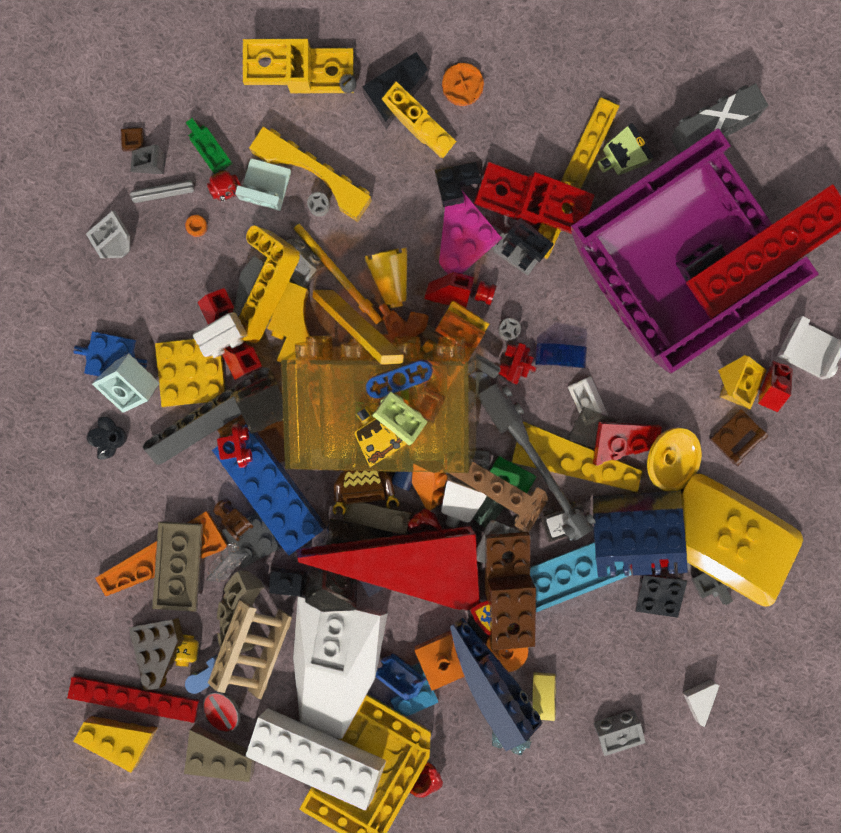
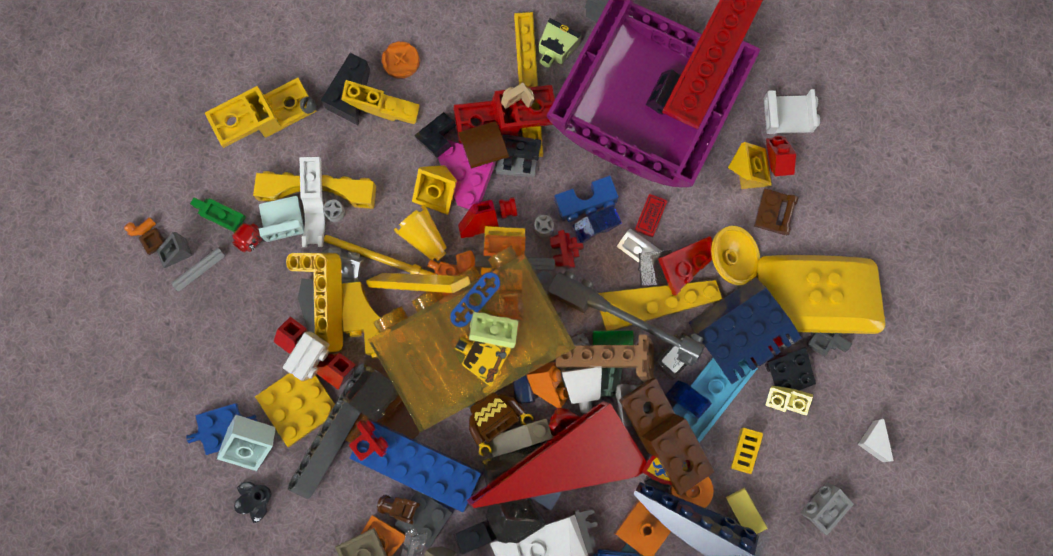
camera: 30 degrees left, 10 degrees down
(110, 237) = (172, 329): light grey slope -> none
(125, 121) = (141, 229): none -> orange arm
(196, 225) = (241, 282): orange tile -> none
(302, 184) = (312, 200): none -> white piece
(390, 626) = (583, 525): none -> light grey plate
(426, 235) = (434, 188): none -> yellow slope
(494, 219) = (483, 144): none -> reddish brown slope
(545, 325) = (571, 206): none -> blue arch
(549, 186) = (513, 95): none -> tan bracket
(550, 567) = (688, 399): none -> clear blue slope
(582, 647) = (756, 445): none -> yellow slope
(617, 375) = (651, 215): none -> red tile
(647, 621) = (791, 399): none -> light yellow slope

